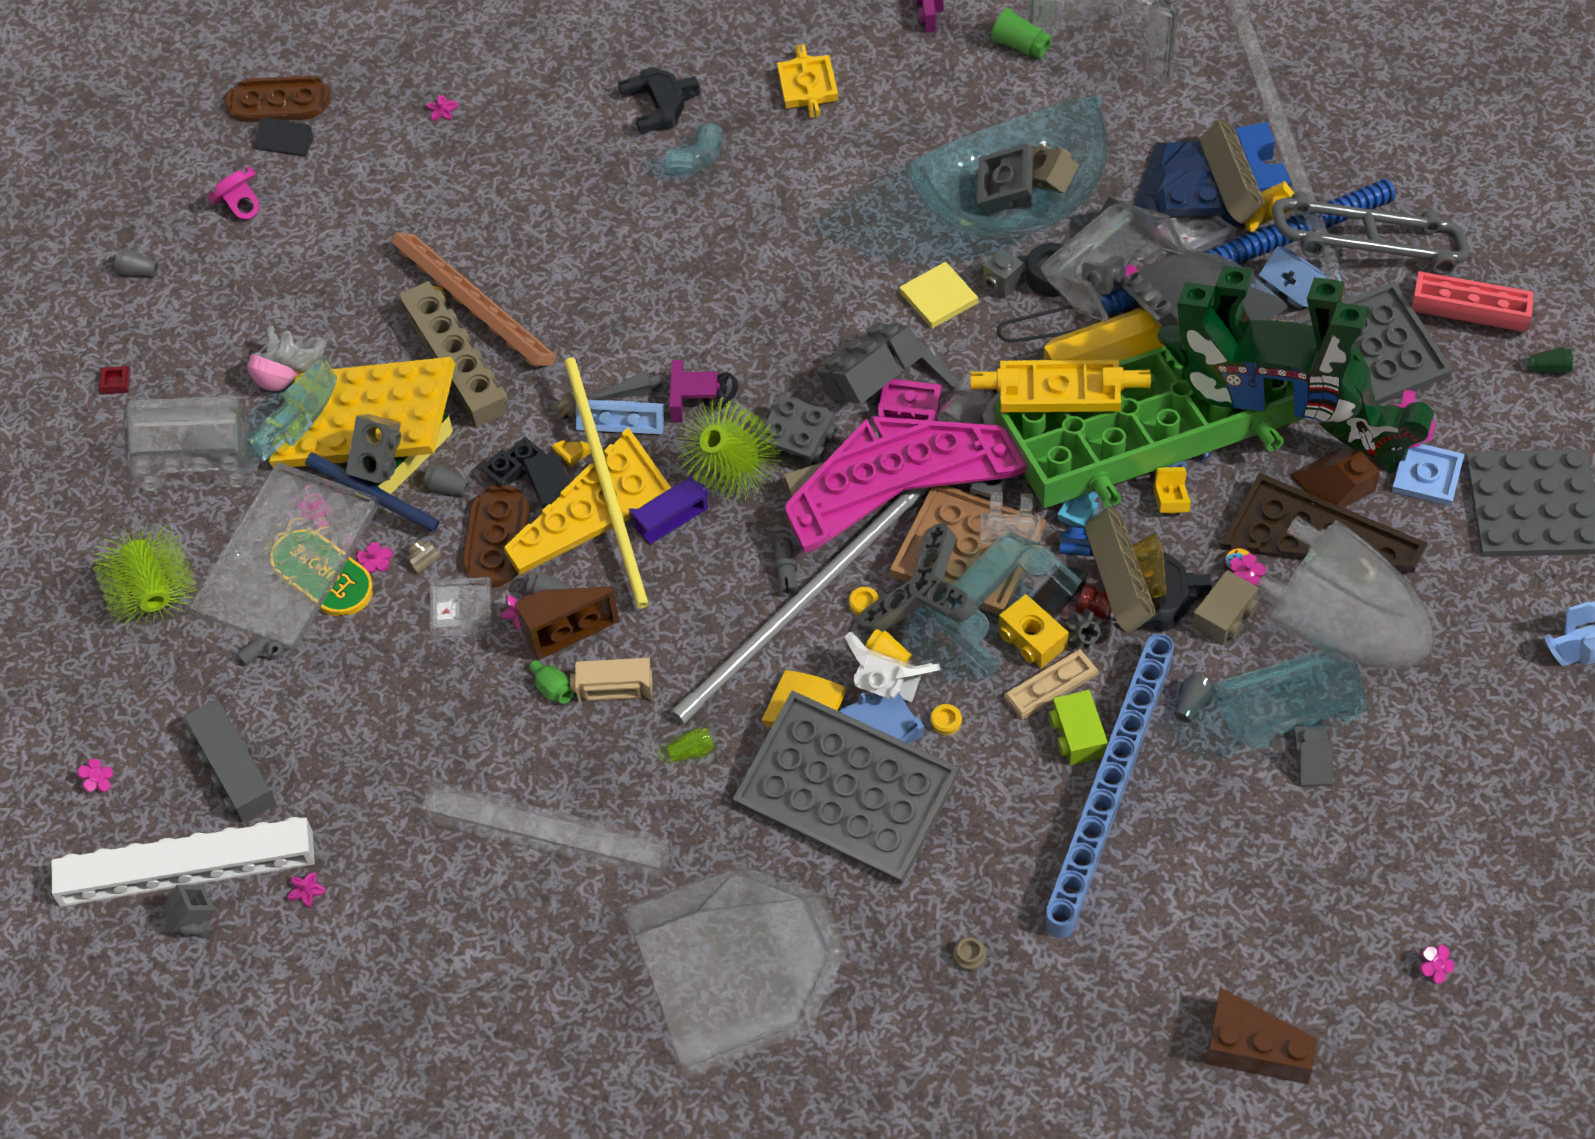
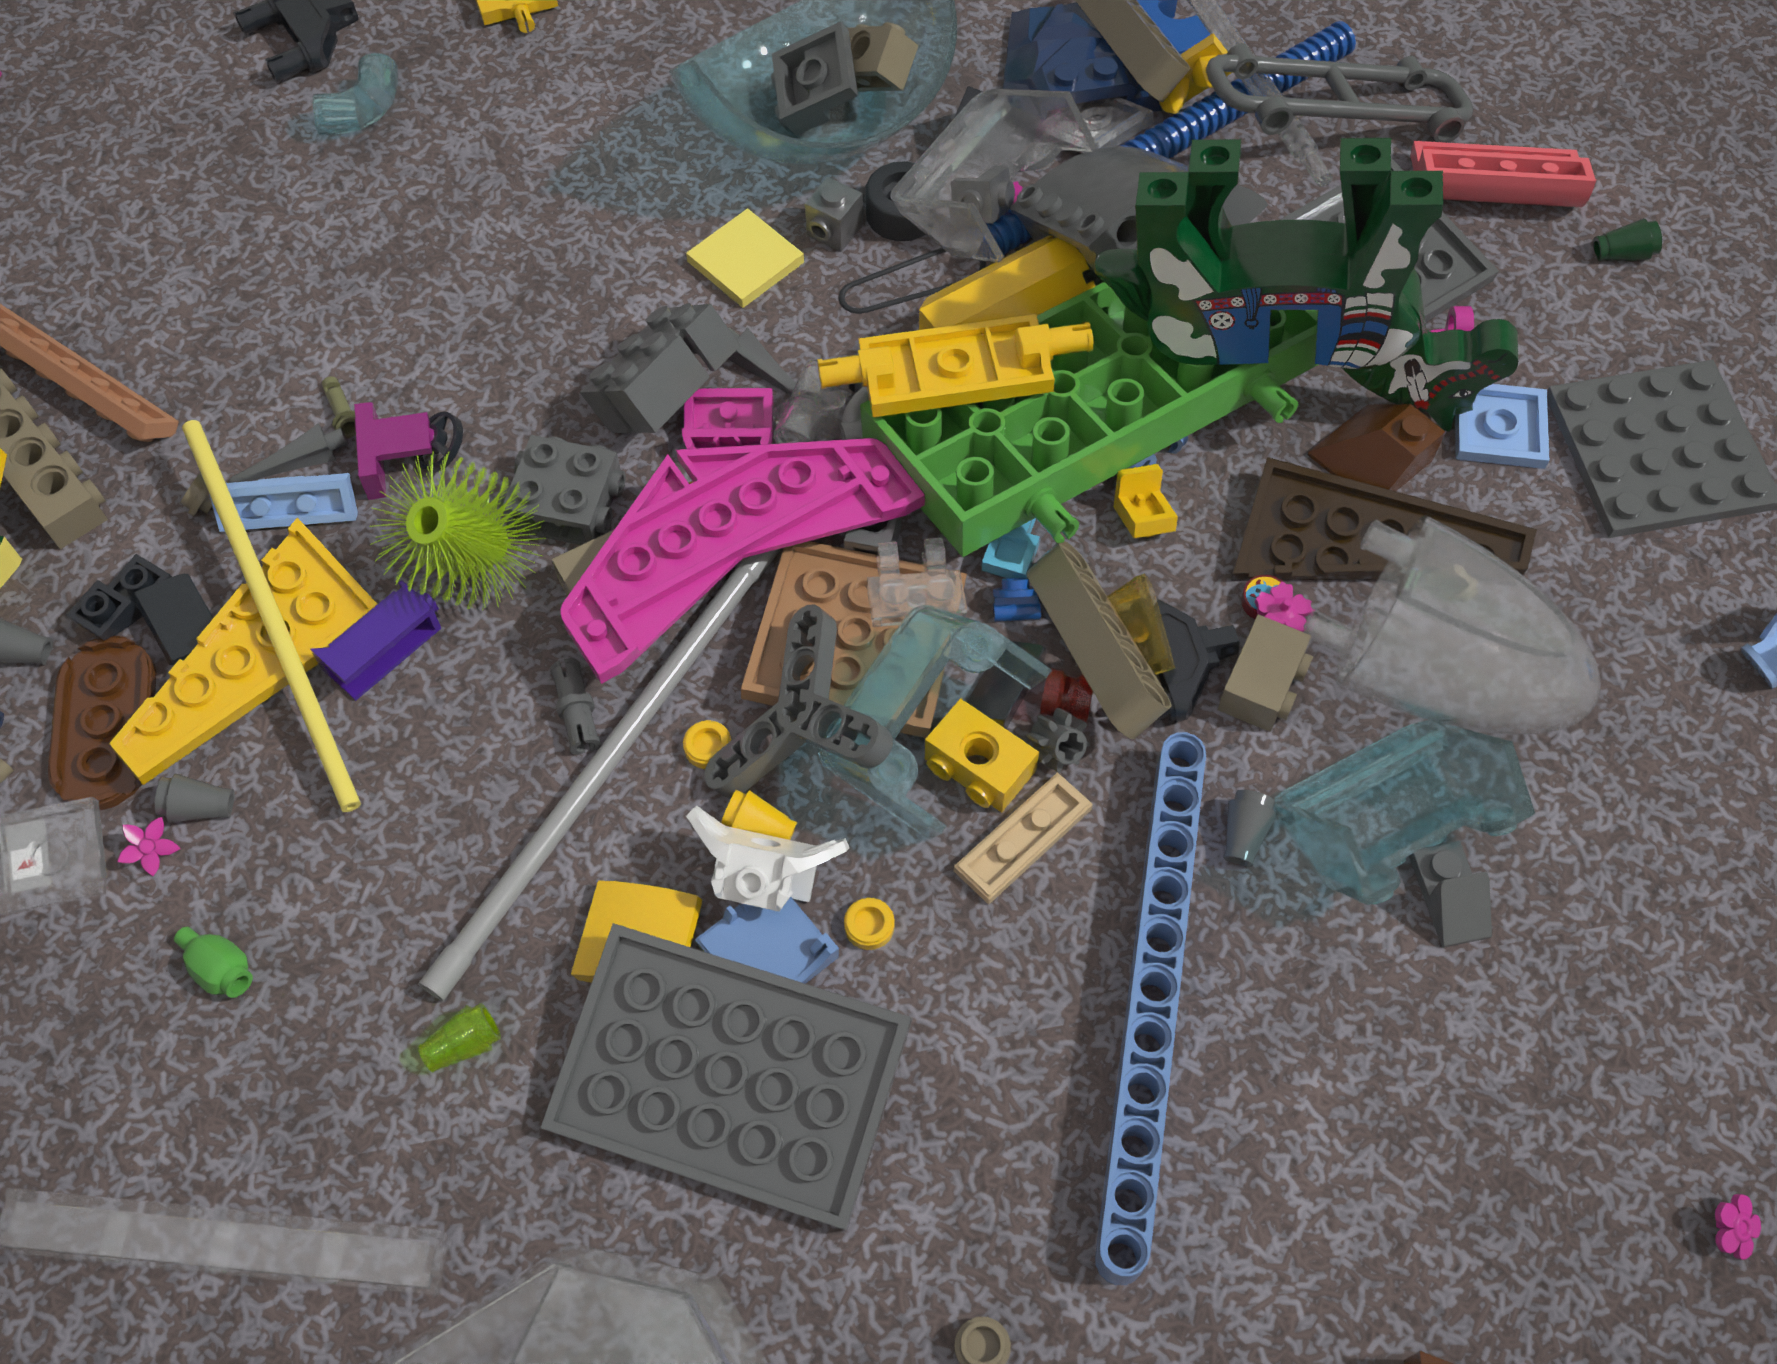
camera: 15 degrees left, 5 degrees up
(564, 616) = (218, 850): reddish brown slope -> none
(571, 451) = (212, 568): yellow tile -> none
(612, 679) = (313, 943): tan window -> none
(661, 364) = (343, 414): none -> olive piece
(1079, 727) = (1084, 907): lime brick -> none
(1280, 269) = (1272, 170): light blue brick -> none

